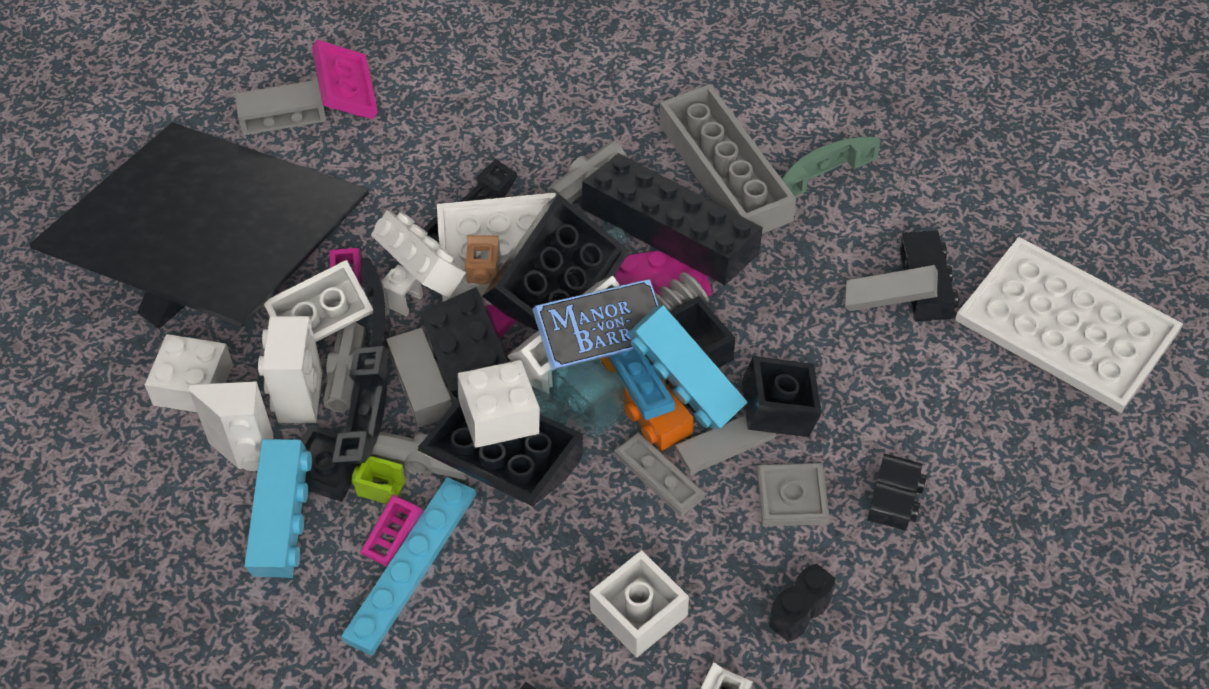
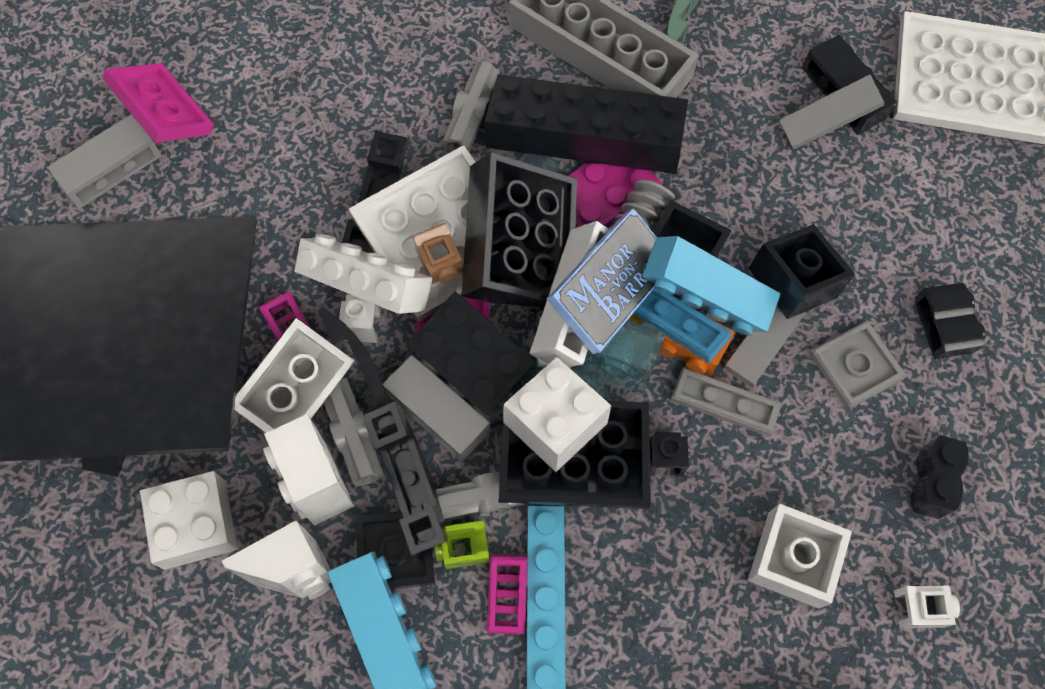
camera: 30 degrees left, 15 degrees up
(582, 480) = (669, 451): none -> black window

